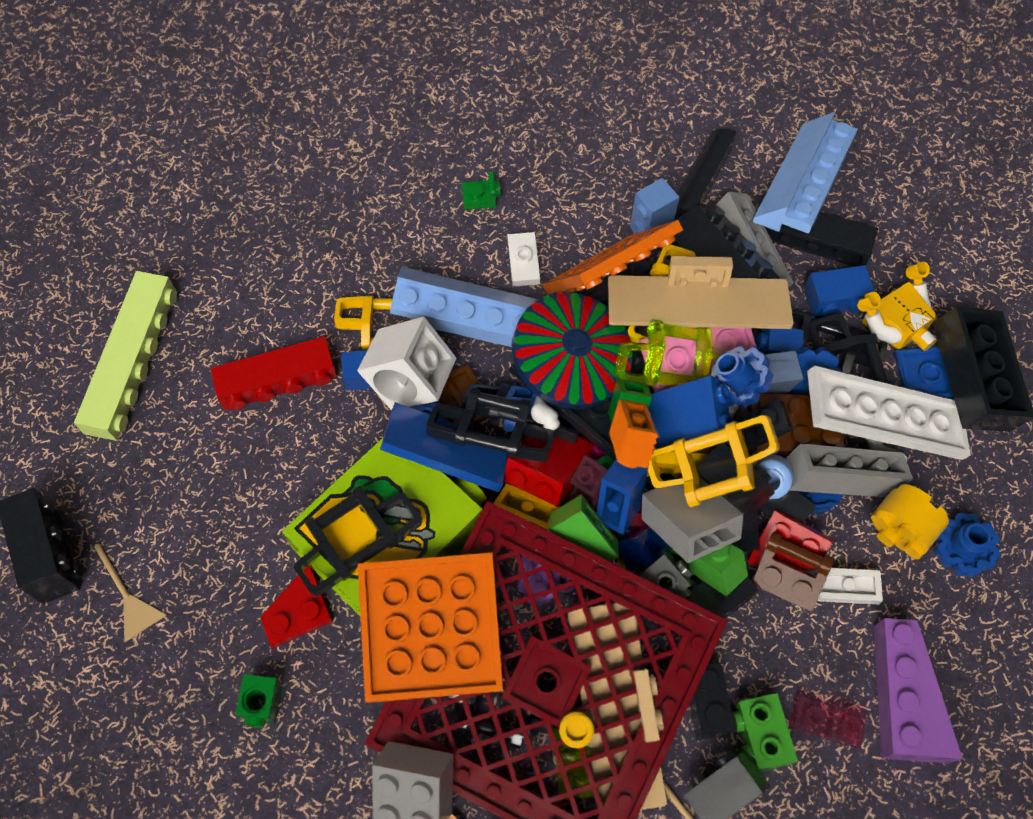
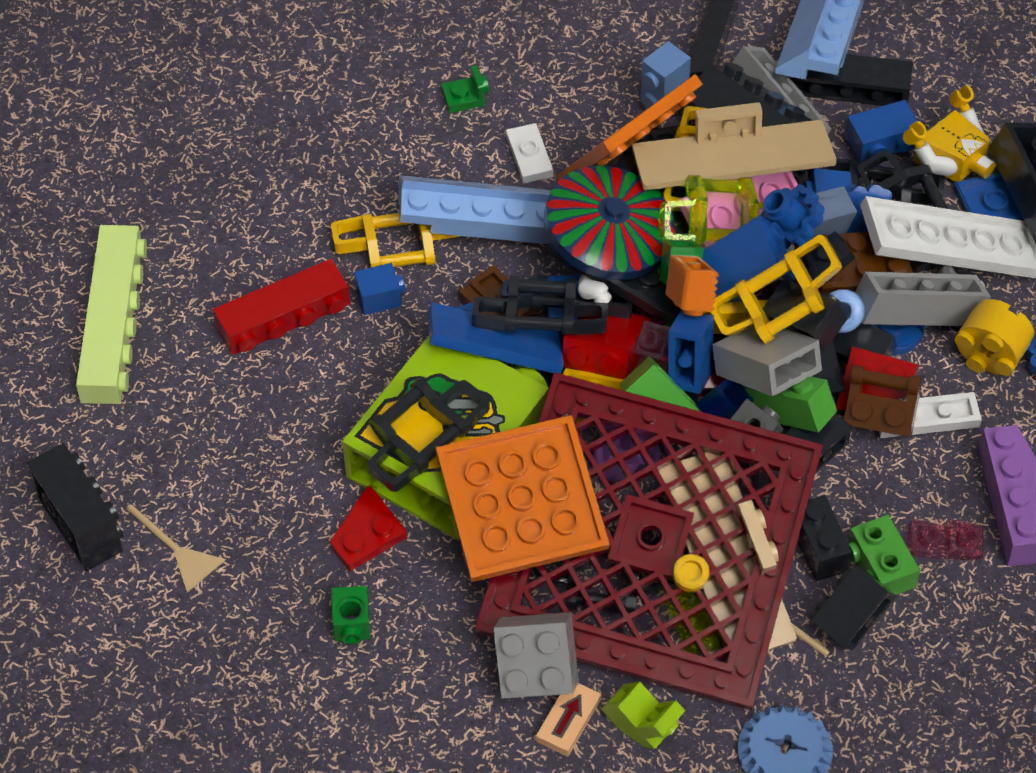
camera: 10 degrees left, 10 degrees down
(407, 363) = (433, 266): white brick -> none

